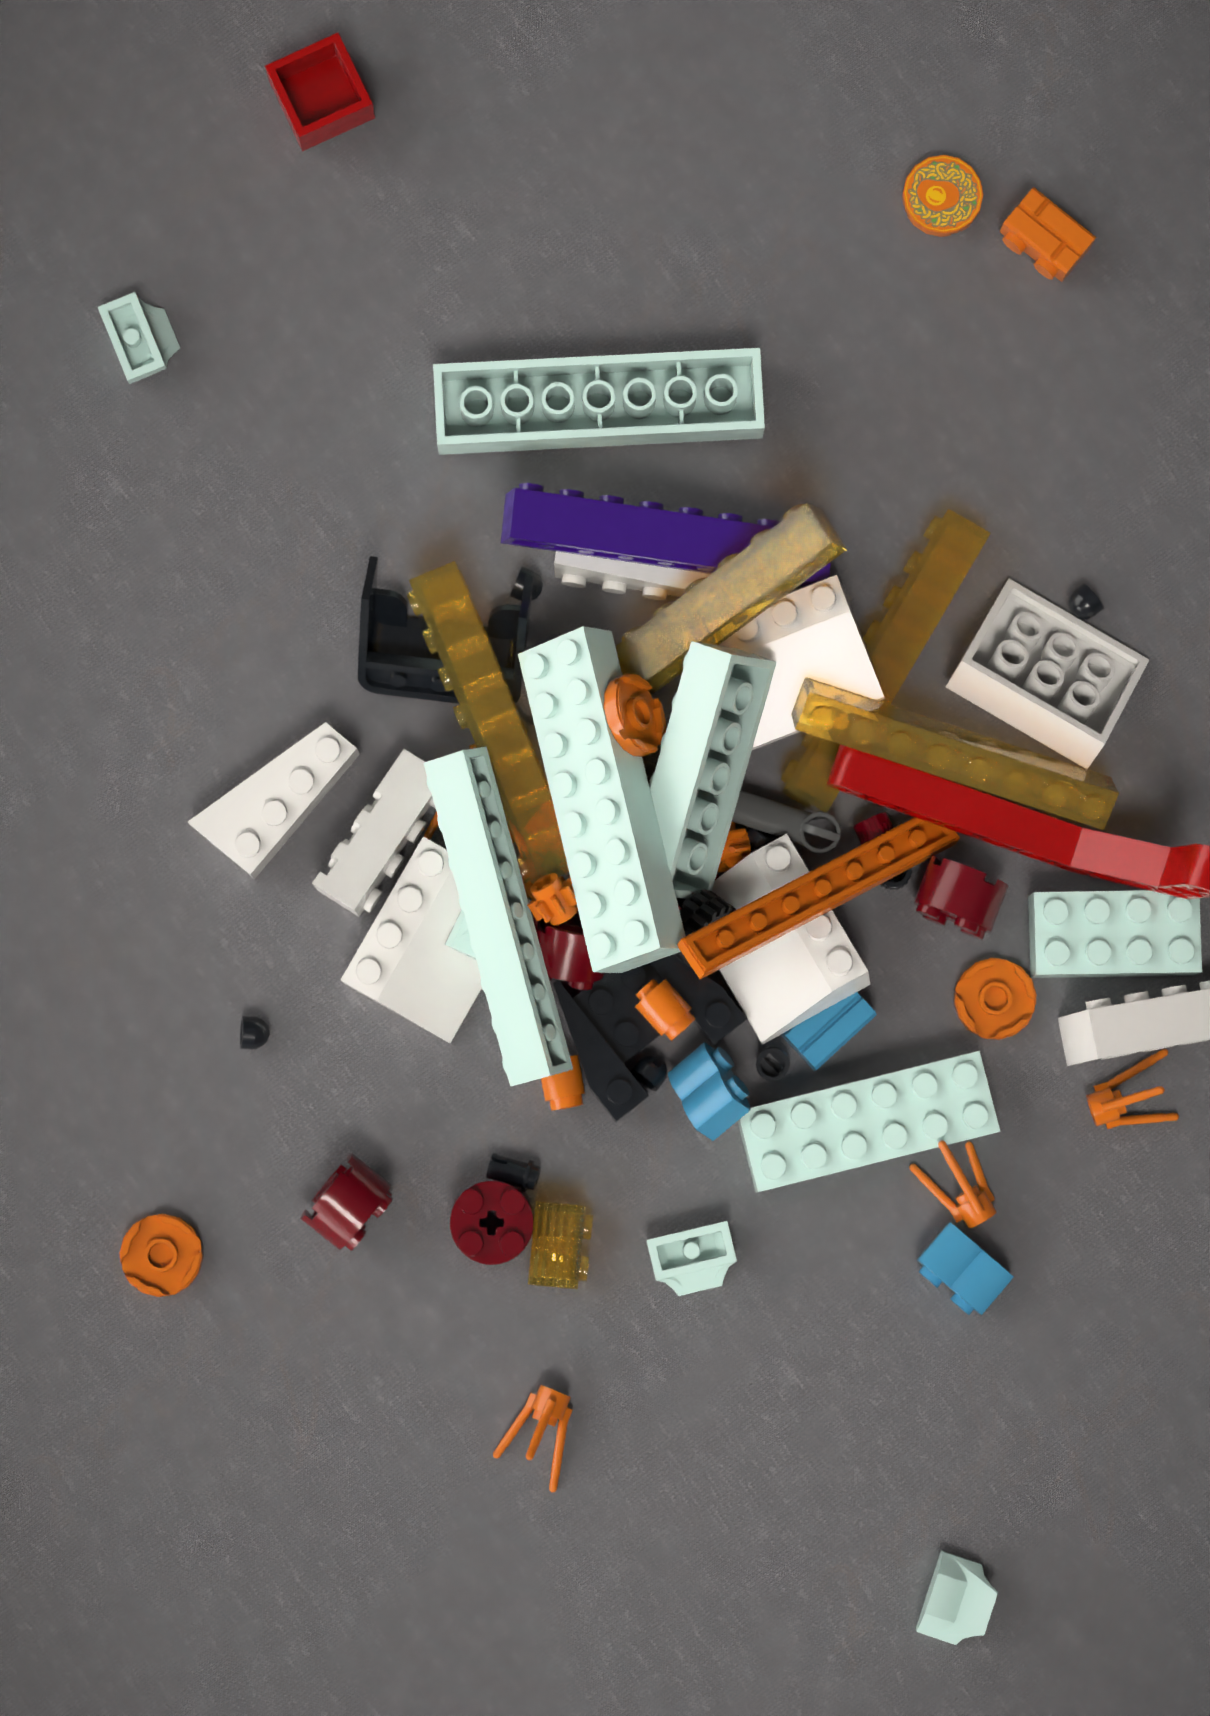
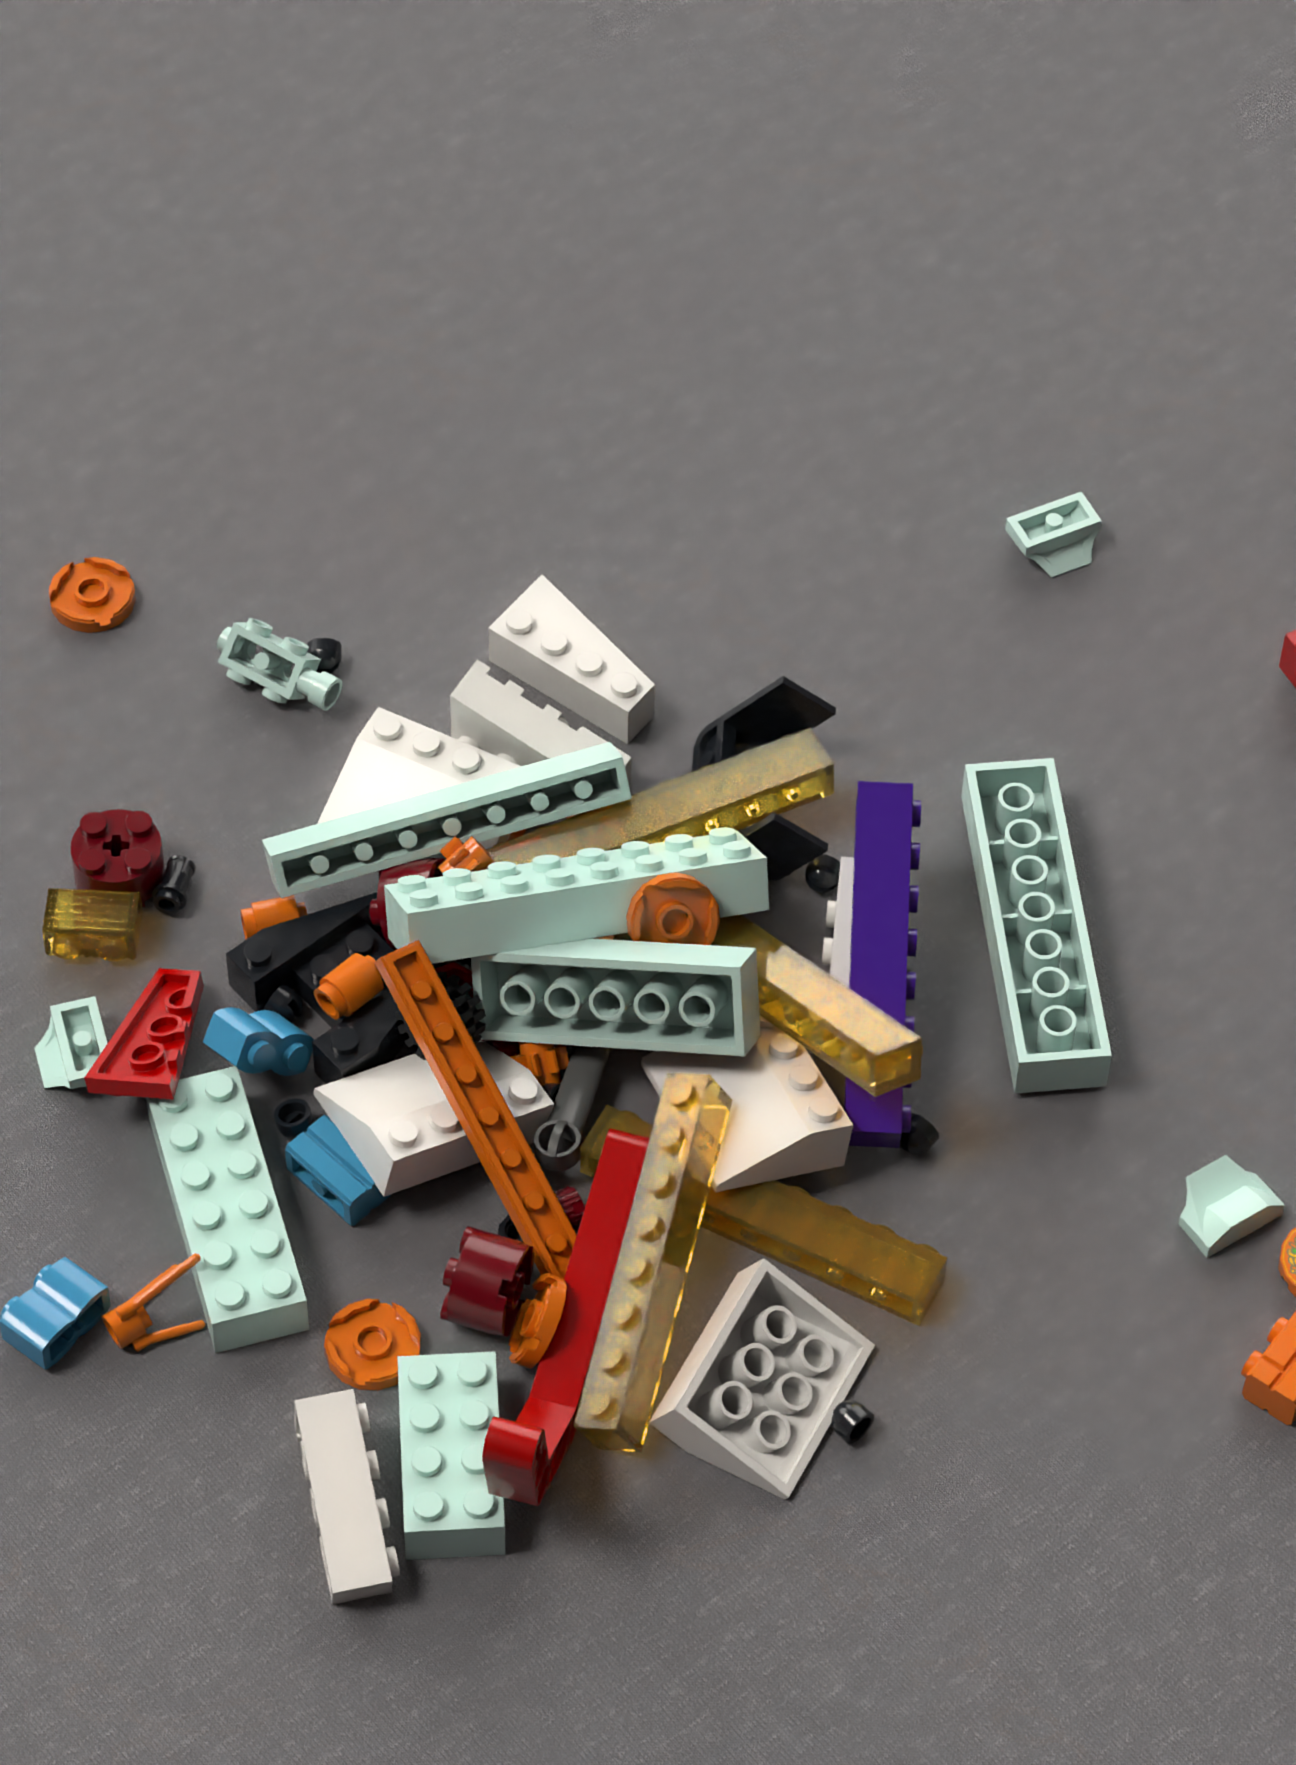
camera: 90 degrees right, 30 degrees down
(269, 1078) = (274, 665): none -> light aqua brick
(347, 1203) = (141, 728): dark red brick -> none
(705, 1188) = (152, 1040): none -> red wing
(887, 269) = (1226, 1205): none -> light aqua slope
(1000, 854) = (537, 1321): none -> orange tile
(1108, 1105) = (247, 1462): orange plant -> none

